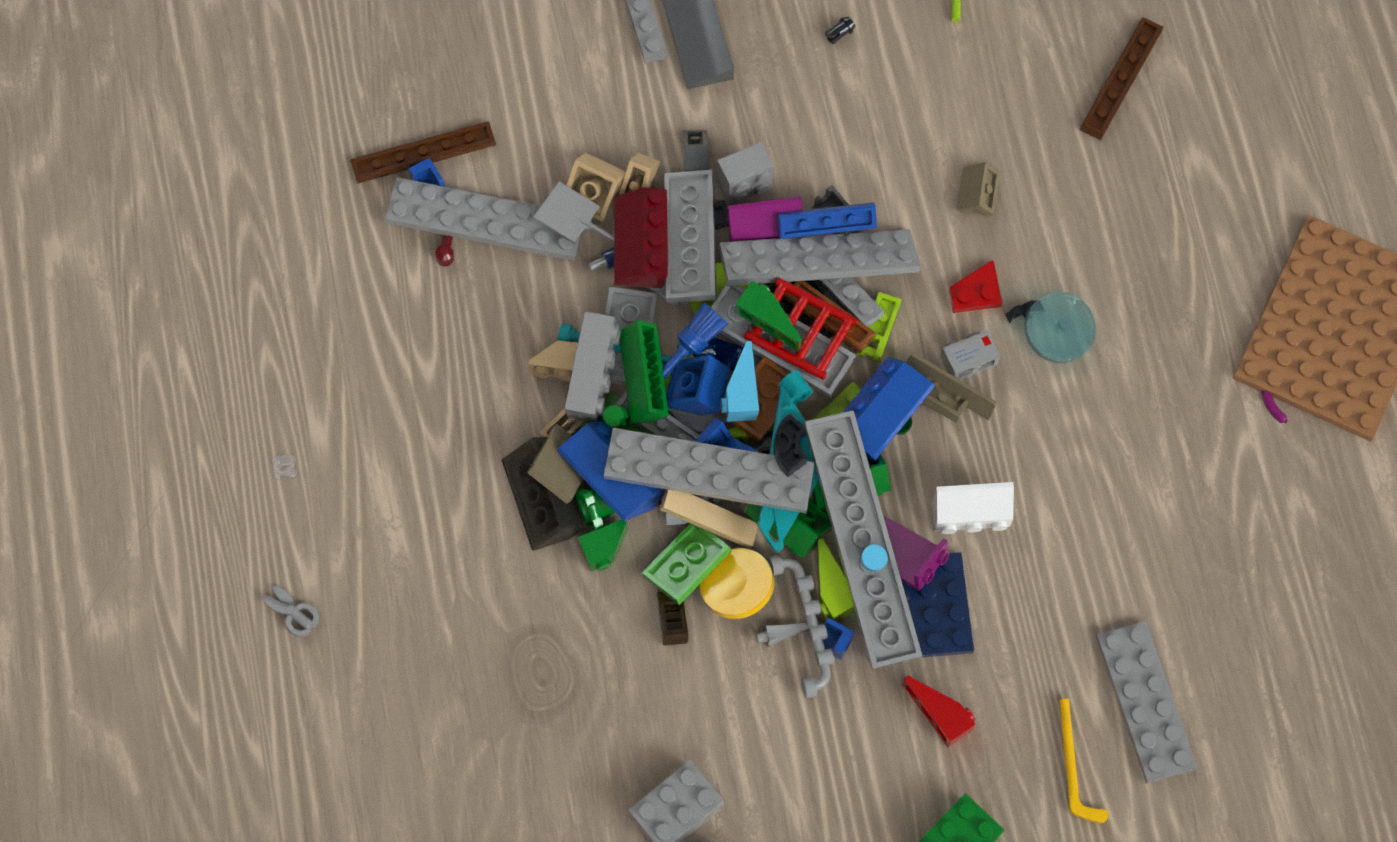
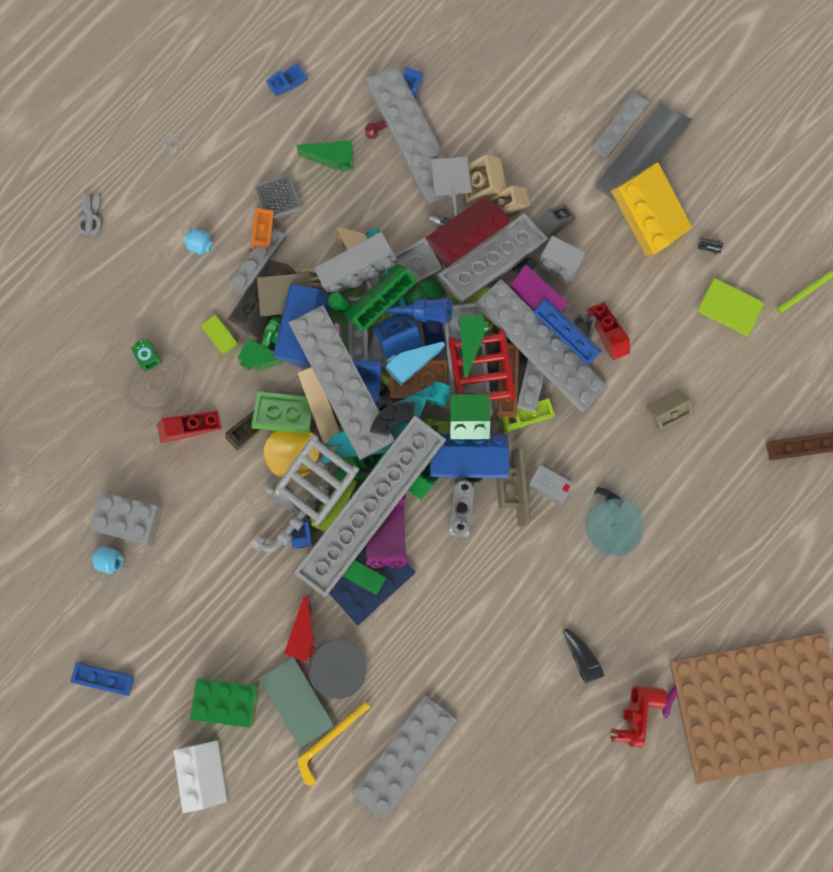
camera: 55 degrees right, 10 degrees up
(313, 298) = (286, 81): none -> blue slope
(422, 515) = (198, 241): none -> medium azure head
(436, 148) = (431, 70): reddish brown tile -> none
(439, 313) = (334, 155): none -> green slope
(441, 401) = (278, 196): none -> tile
(463, 441) = (261, 228): none -> orange panel
(492, 473) = (255, 263): none -> light grey plate
(505, 660) = (146, 354): none -> green brick
(544, 570) = (219, 335): none -> lime tile
(621, 673) = (187, 426): none -> red slope
(669, 326) = (428, 289): none -> green slope
(761, 54) = (651, 209): none -> yellow slope
(818, 552) = (340, 486): none -> light grey bar
(843, 375) = (469, 416): none -> green slope
(855, 184) = (610, 331): none -> red slope
(874, 558) = (360, 522): medium azure tile -> none
(914, 444) = (462, 494): none -> light grey piece
(918, 59) = (731, 307): none -> lime tile
(931, 602) = (364, 577): none -> green tile
(973, 507) = (447, 559): white slope -> none
(976, 291) = (600, 457): red wing -> none
(1005, 701) = (337, 669): none -> dark grey piece
(1009, 770) = (297, 702): none -> sand green tile
(1174, 455) = (584, 658): none -> black piece
(1266, 441) = (640, 700): none -> red piece

